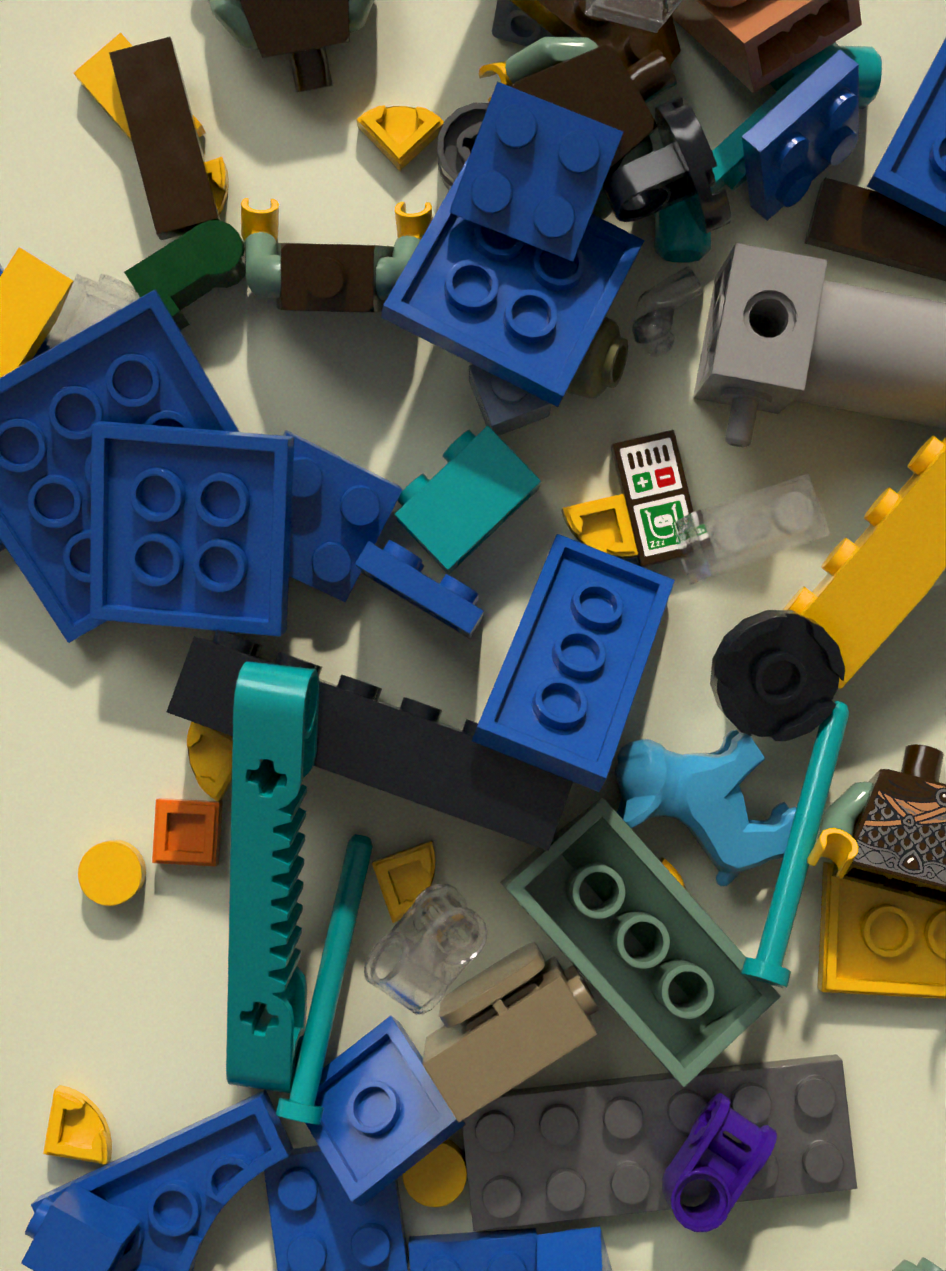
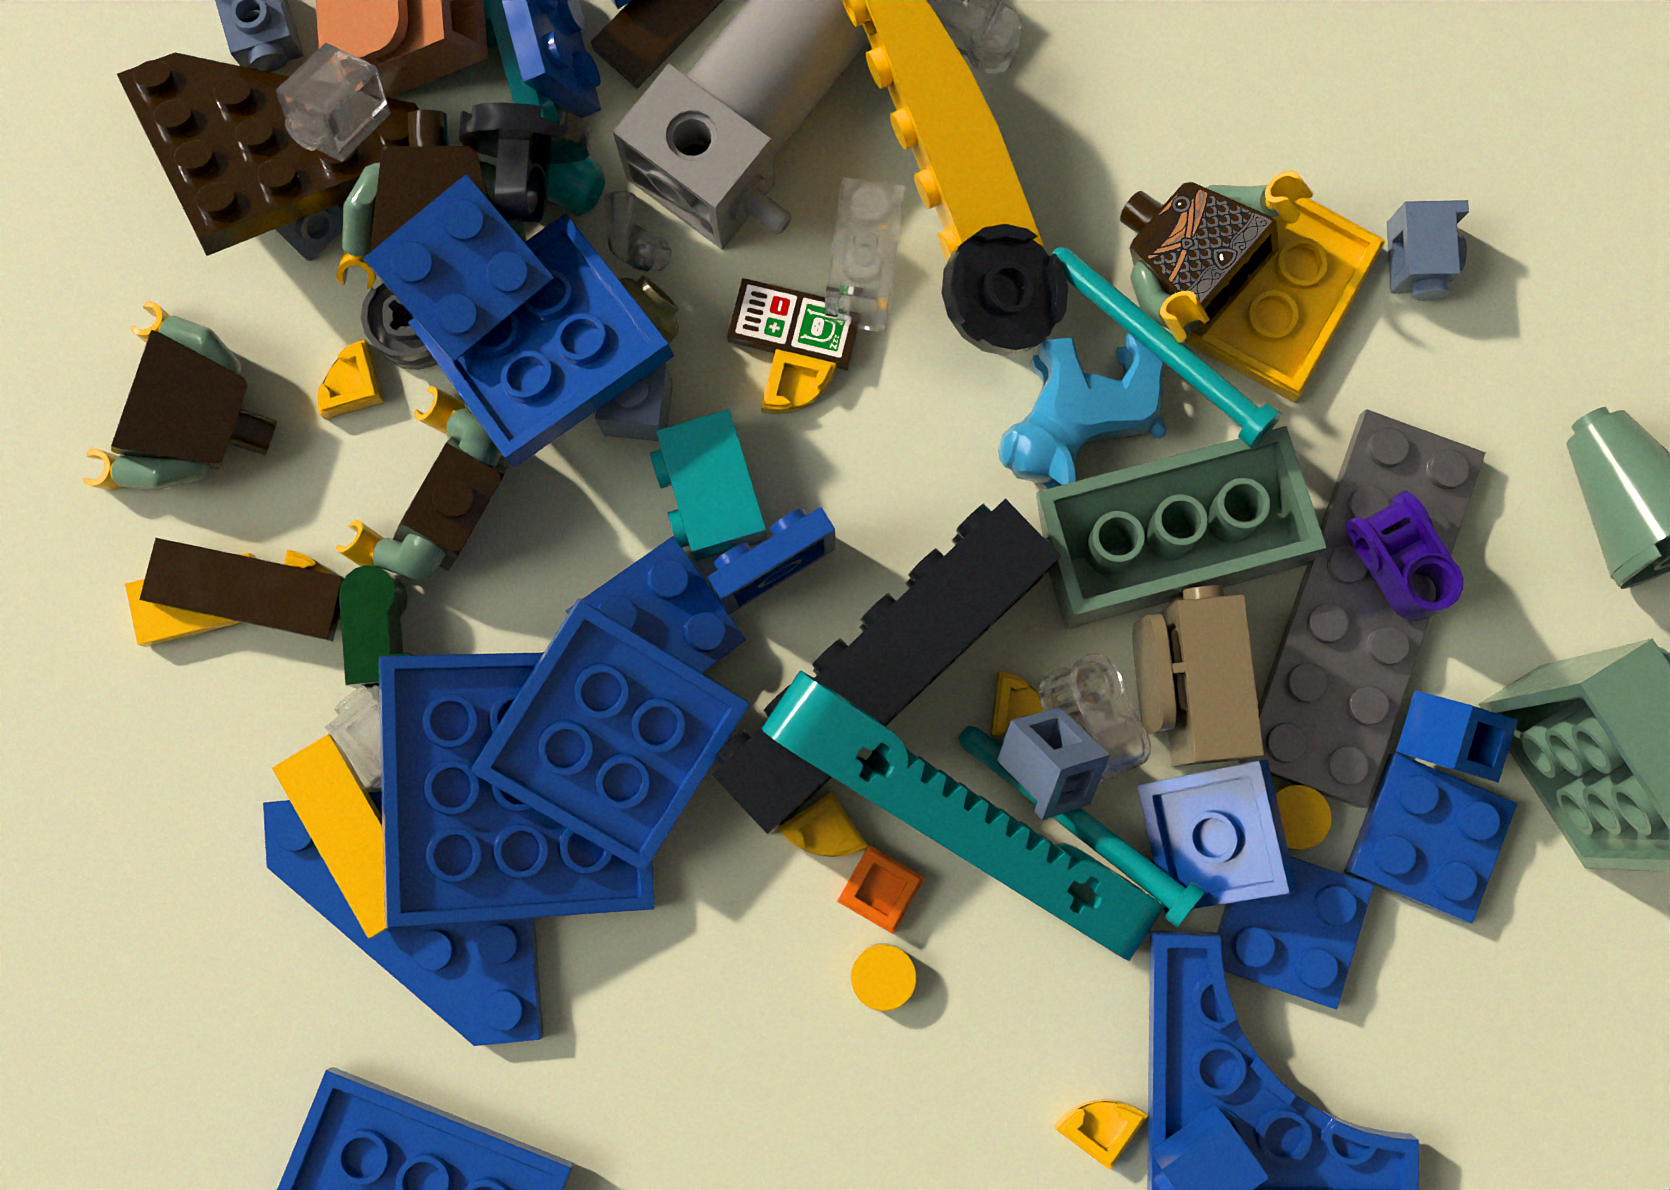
camera: 65 degrees left, 5 degrees down
(367, 931) = (1053, 761): none -> sand blue brick
(575, 663) = (906, 455): blue plate -> none

